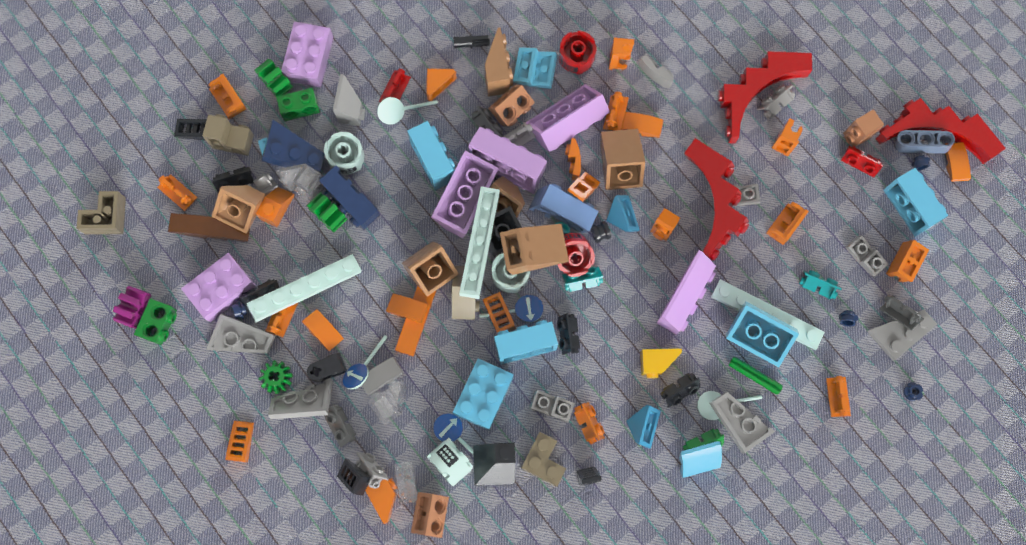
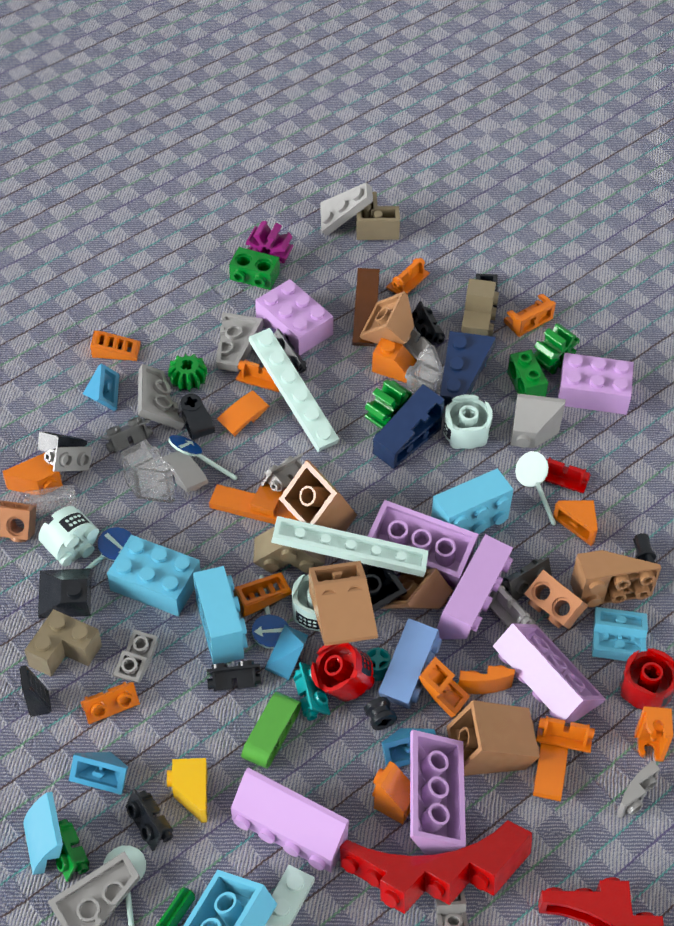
camera: 90 degrees right, 25 degrees down
(91, 240) = (344, 206): none -> light grey wing
(287, 449) = (104, 387): none -> dark azure slope
(385, 289) = (281, 476): none -> light grey hinge
(548, 294) = (286, 652): none -> dark azure slope
(613, 306) = (271, 730): none -> bright green beam
(668, 193) = (437, 793): none -> lavender slope

